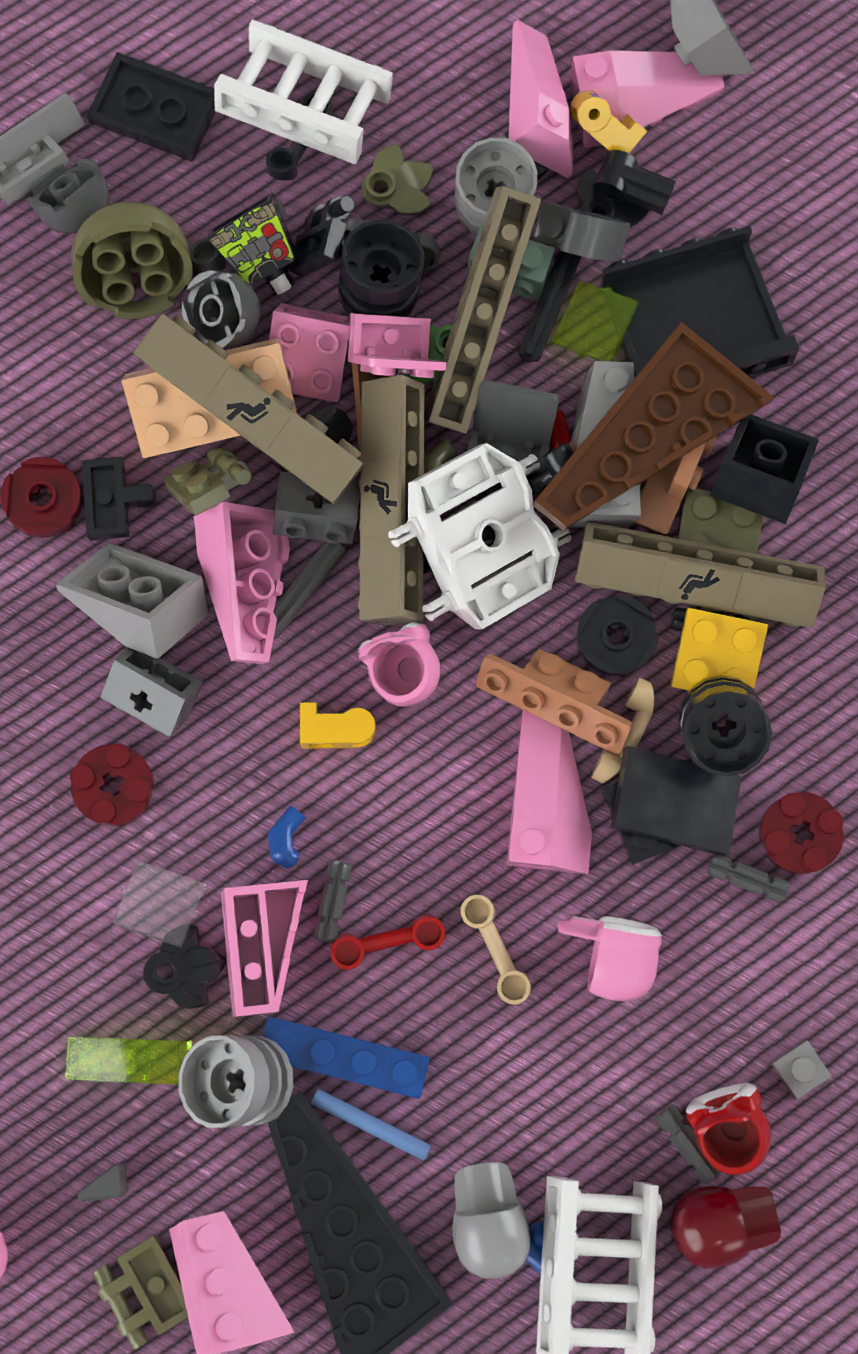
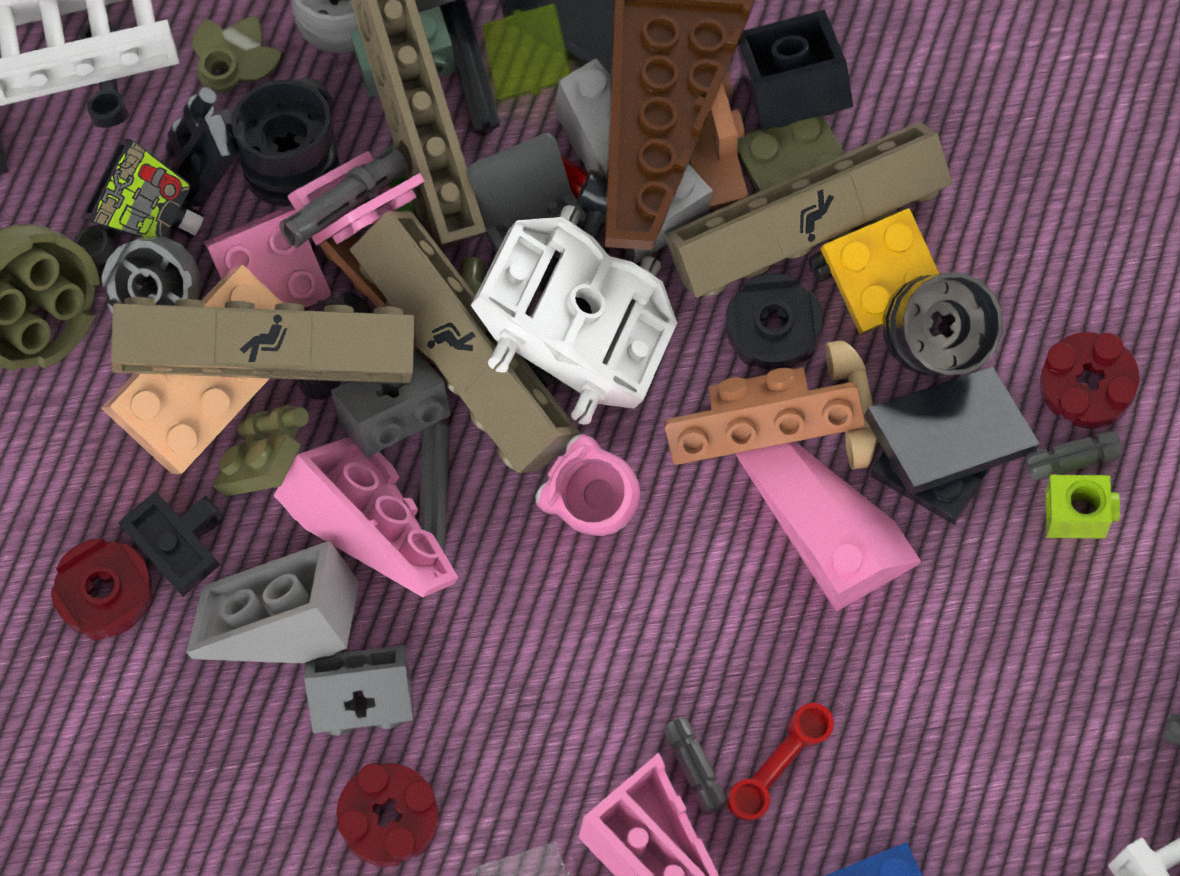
camera: 30 degrees left, 10 degrees down
(281, 840) = (597, 742): blue arm -> none
(347, 730) = (570, 600): yellow leg -> none
(395, 341) = (359, 187): none -> dark grey pin
(513, 984) = (846, 673): tan bar -> none
(622, 955) = (1013, 609): bright pink piece -> none
(704, 918) = (1065, 521): none -> lime brick

